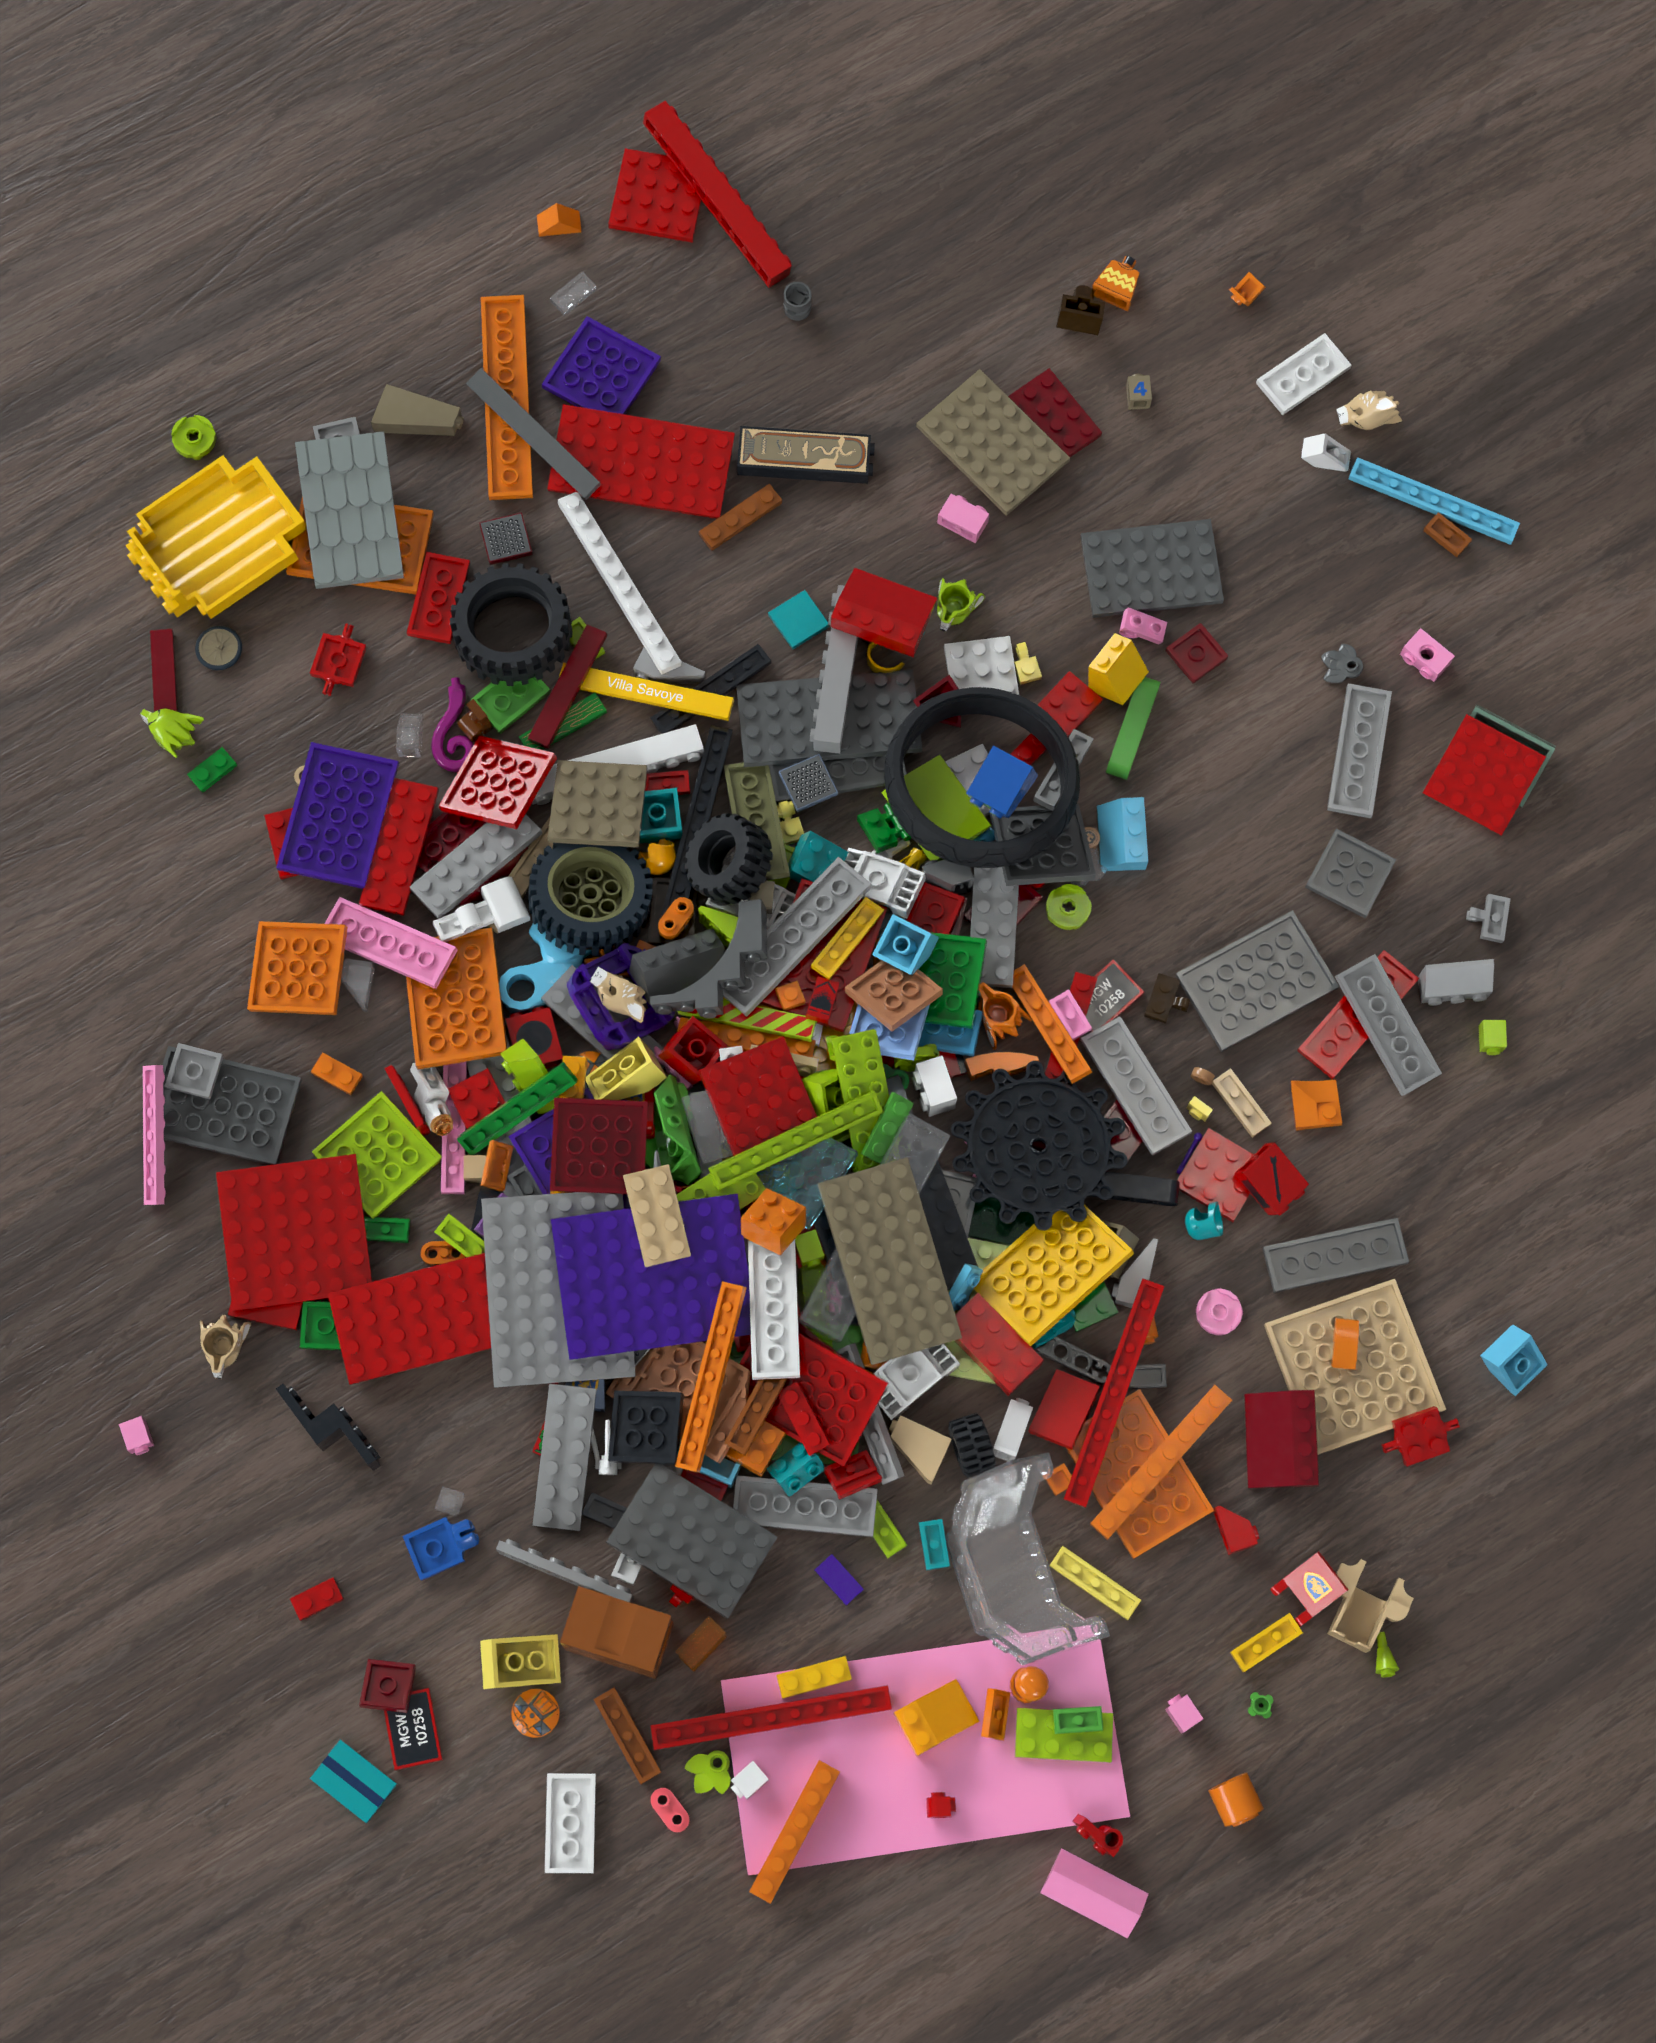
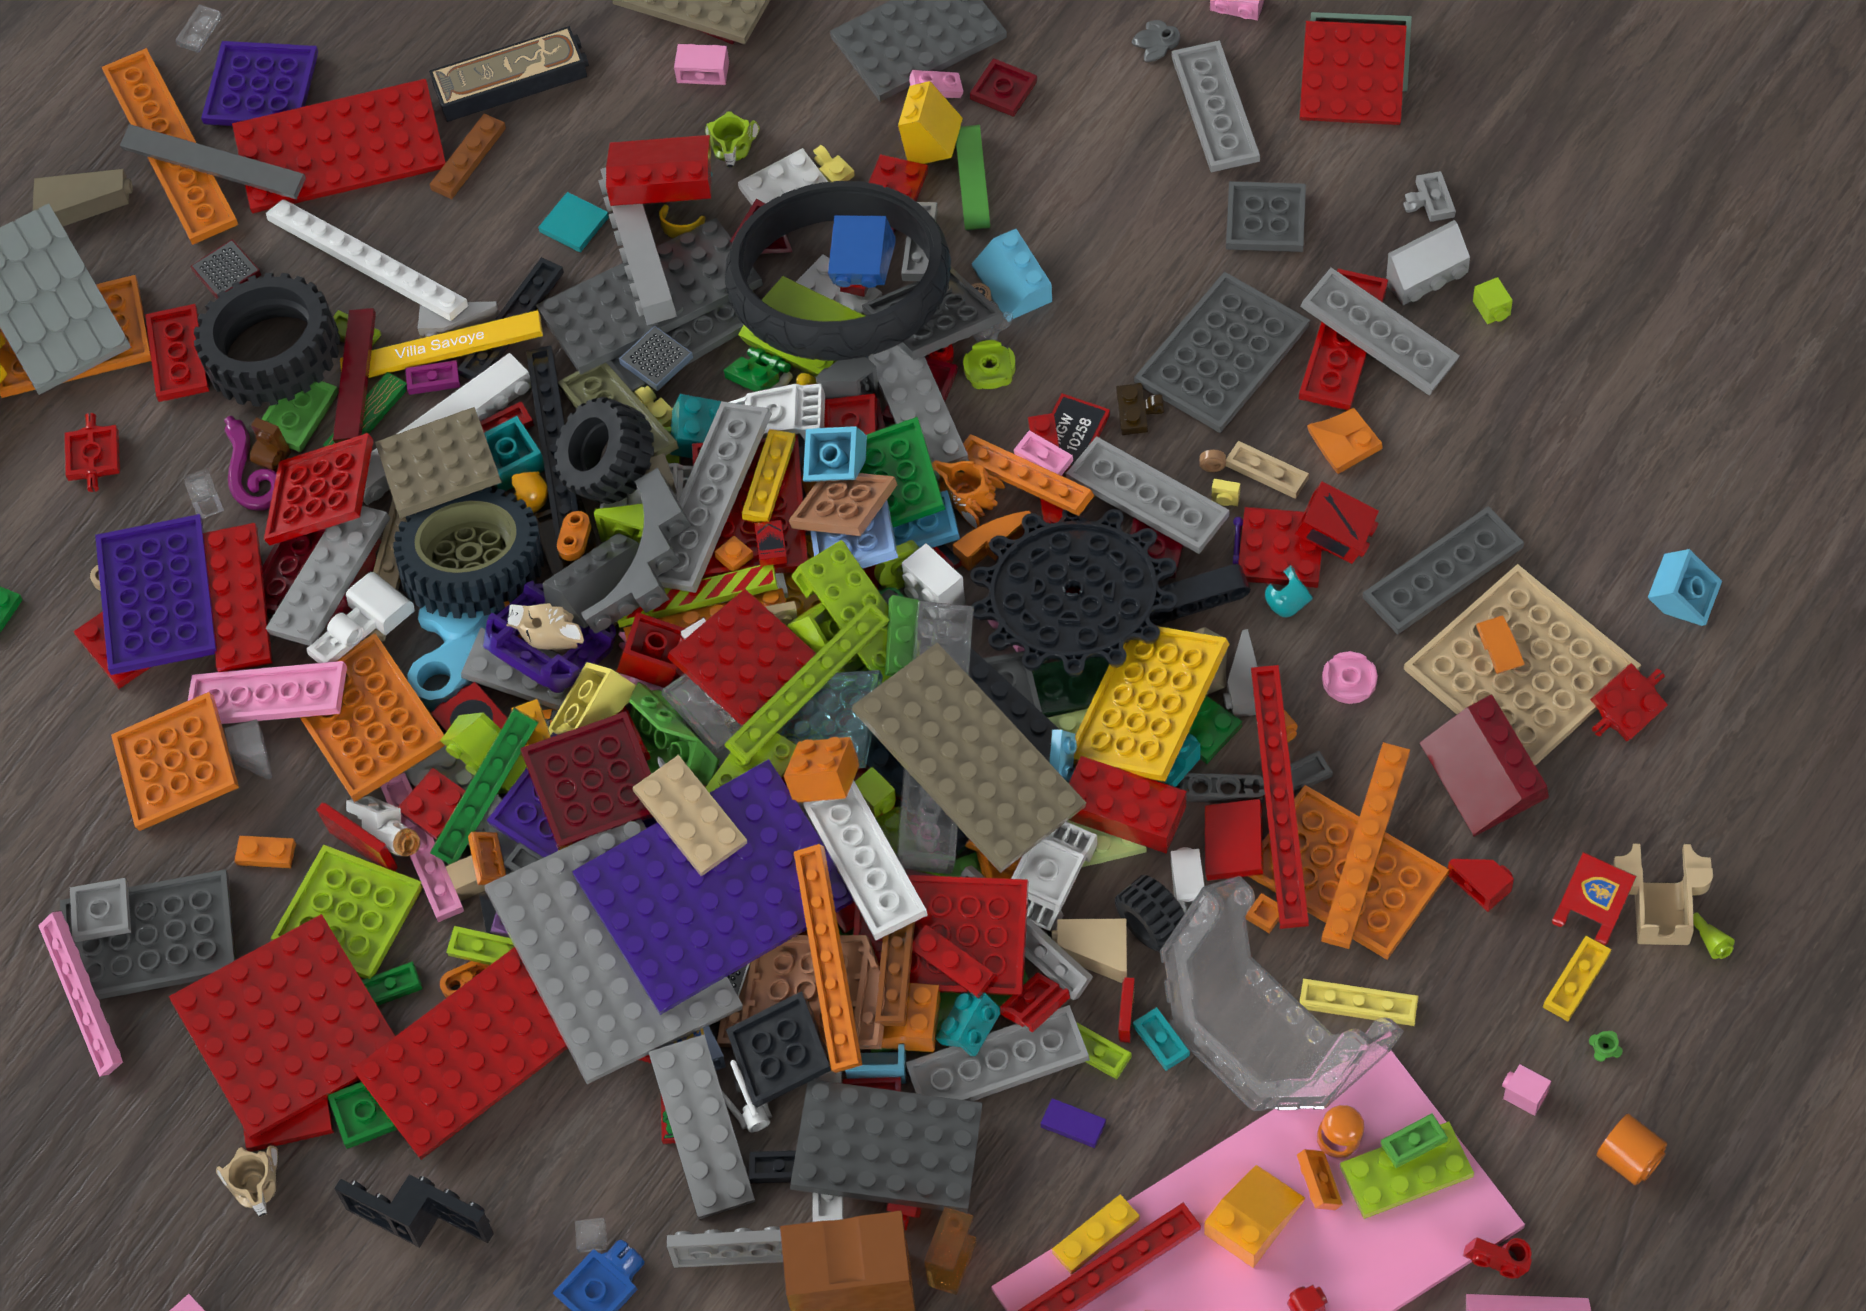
camera: 15 degrees left, 15 degrees down
(628, 714) = (432, 377): none -> magenta plate
(919, 1509) = (1126, 1009): none -> red tile

